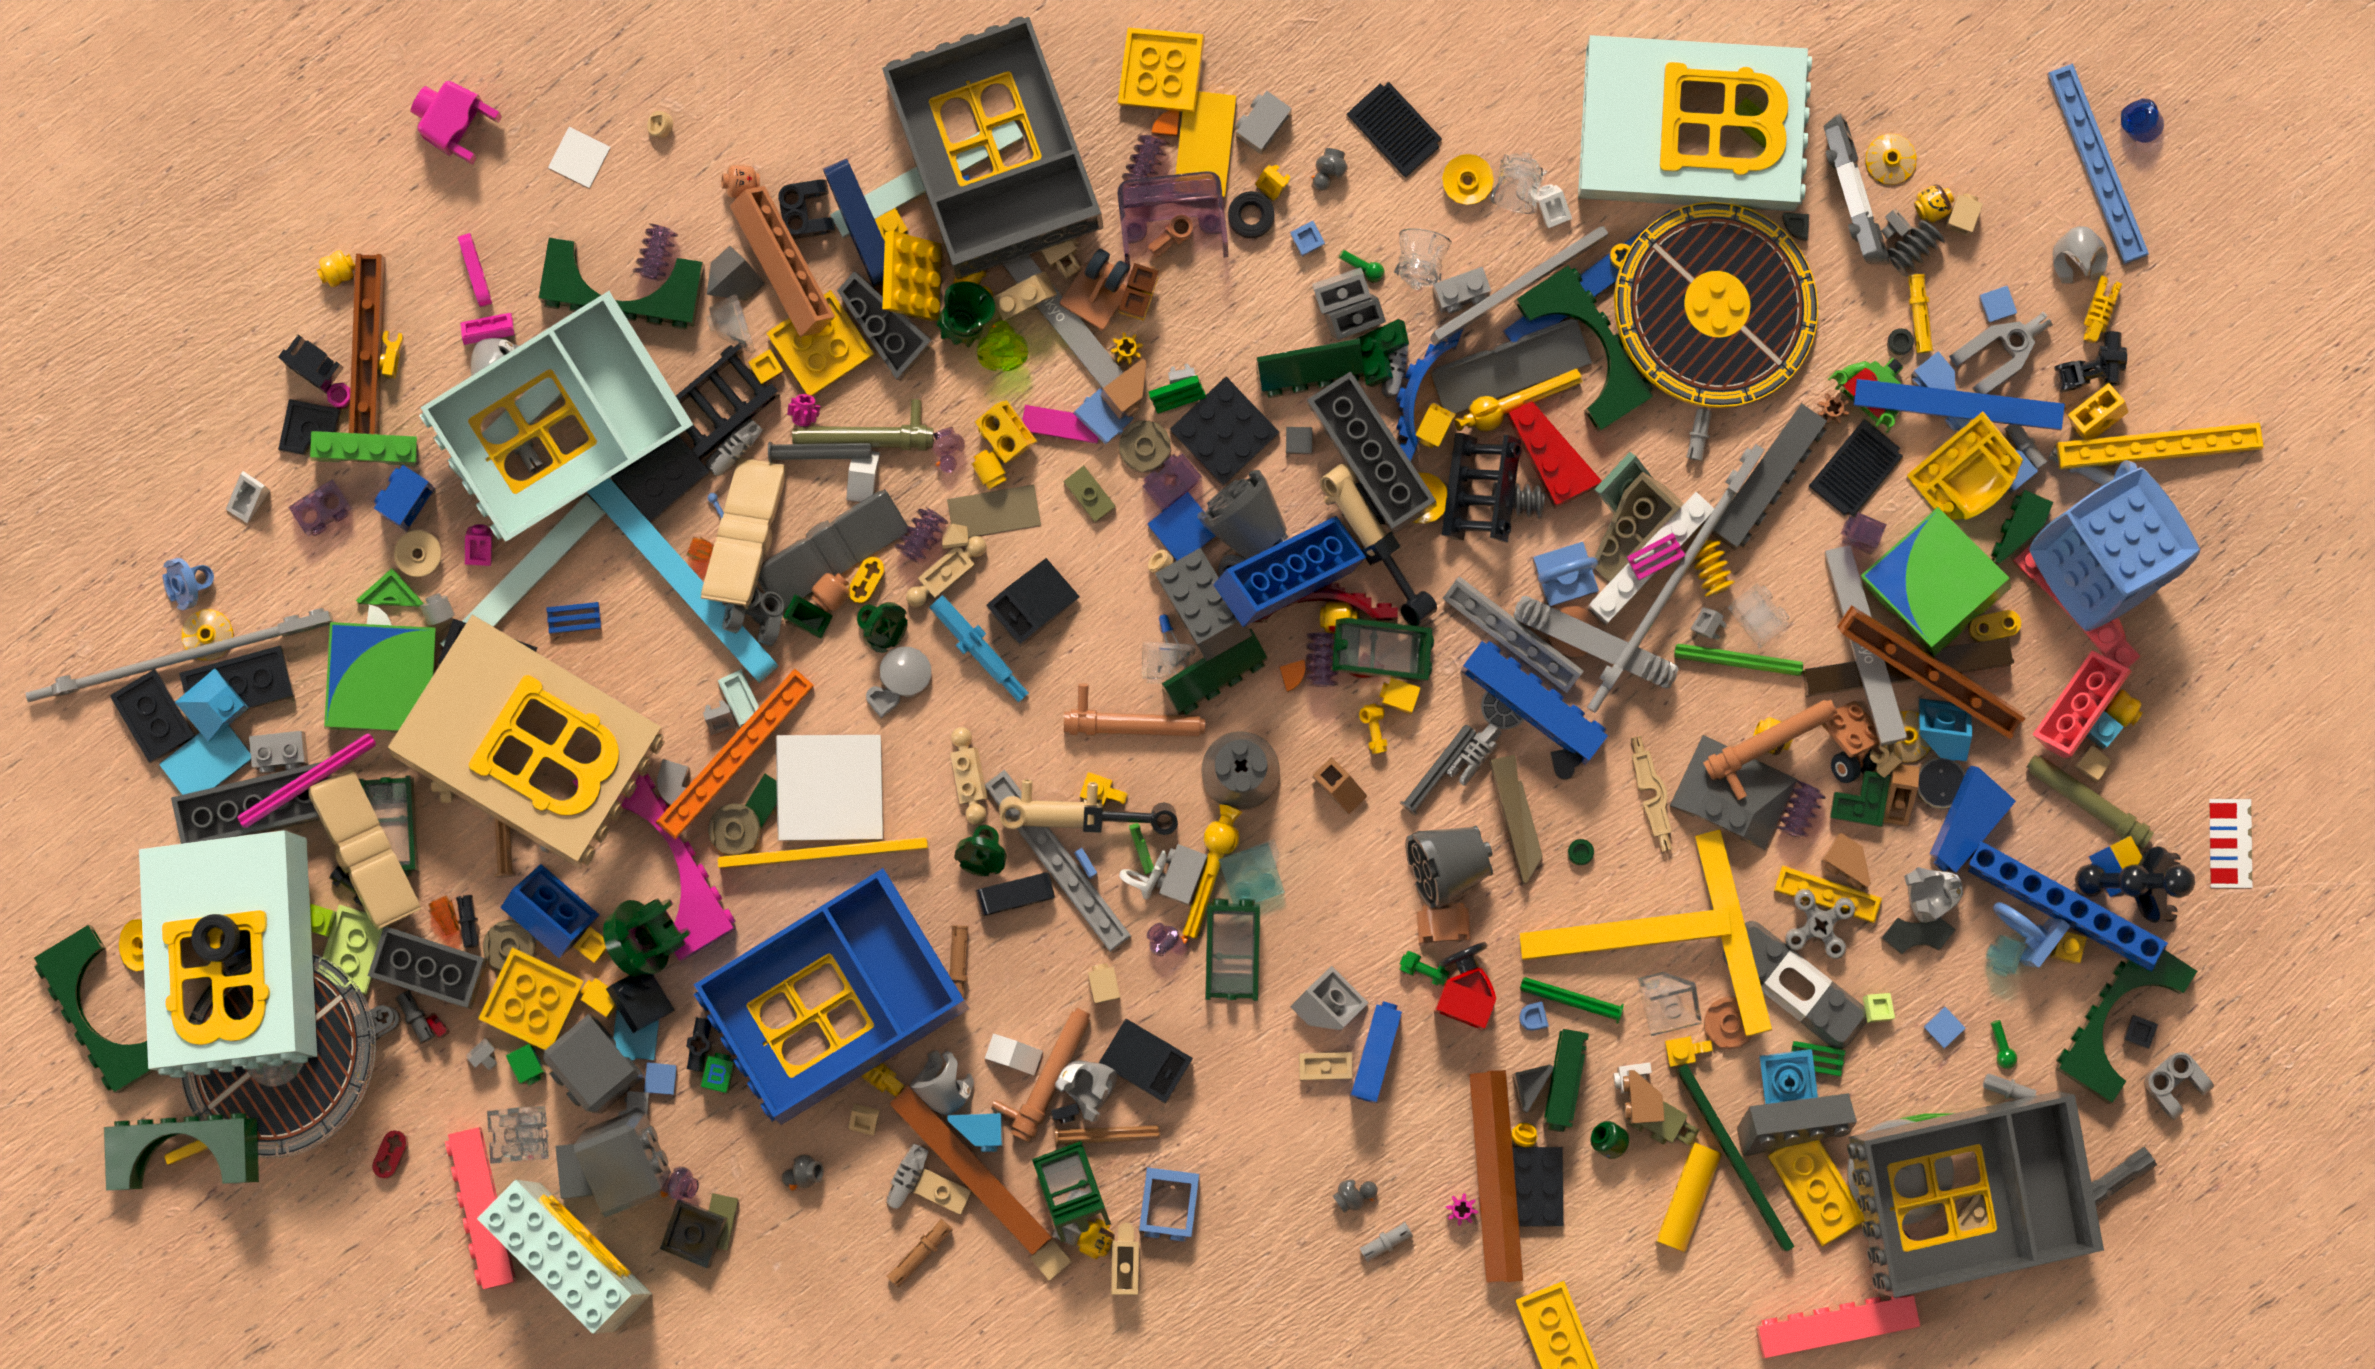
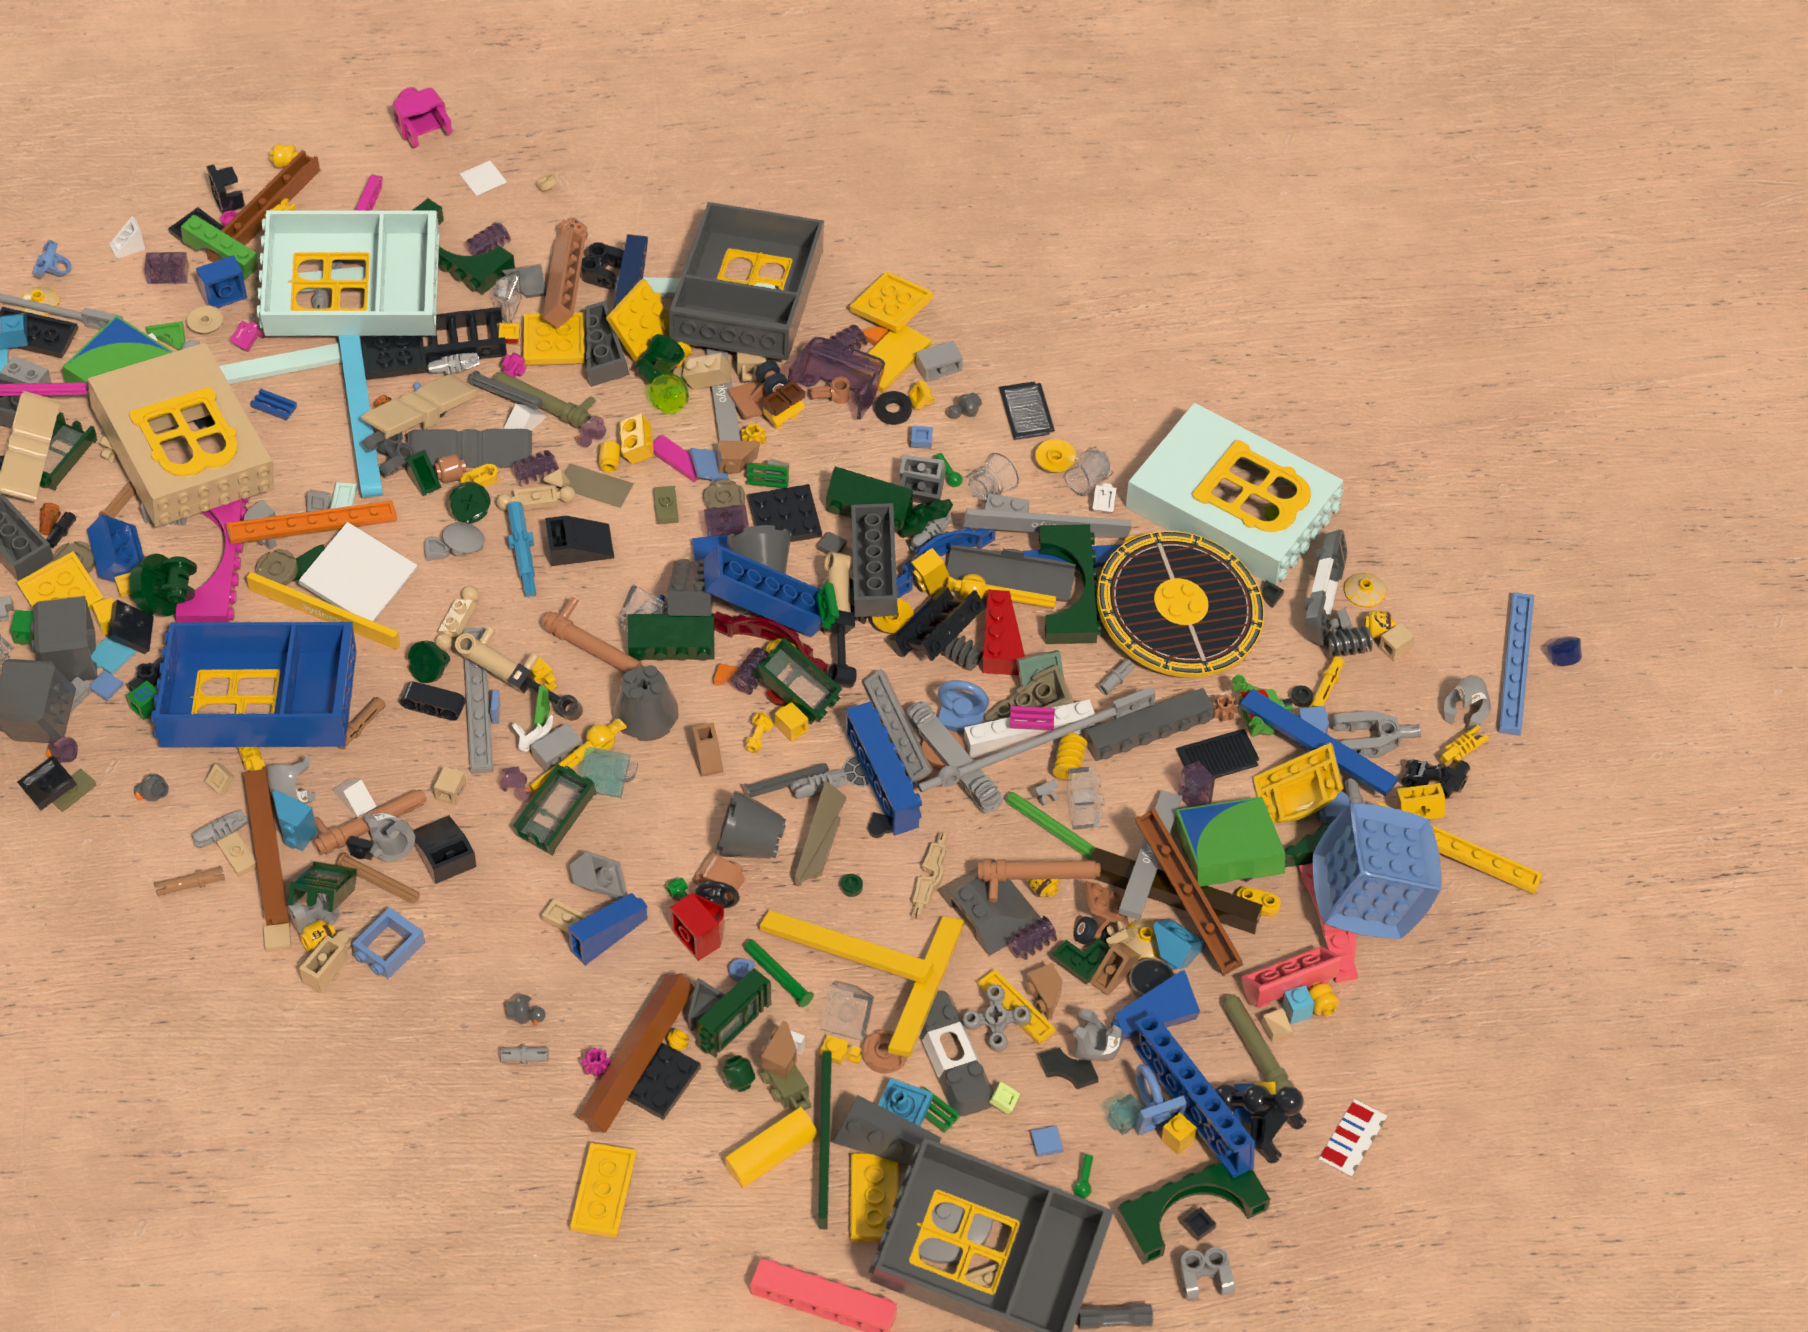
camera: 30 degrees right, 30 degrees down
(1360, 541) = (827, 605): none -> green tile
(1998, 304) = (1389, 706): medium blue piece -> none

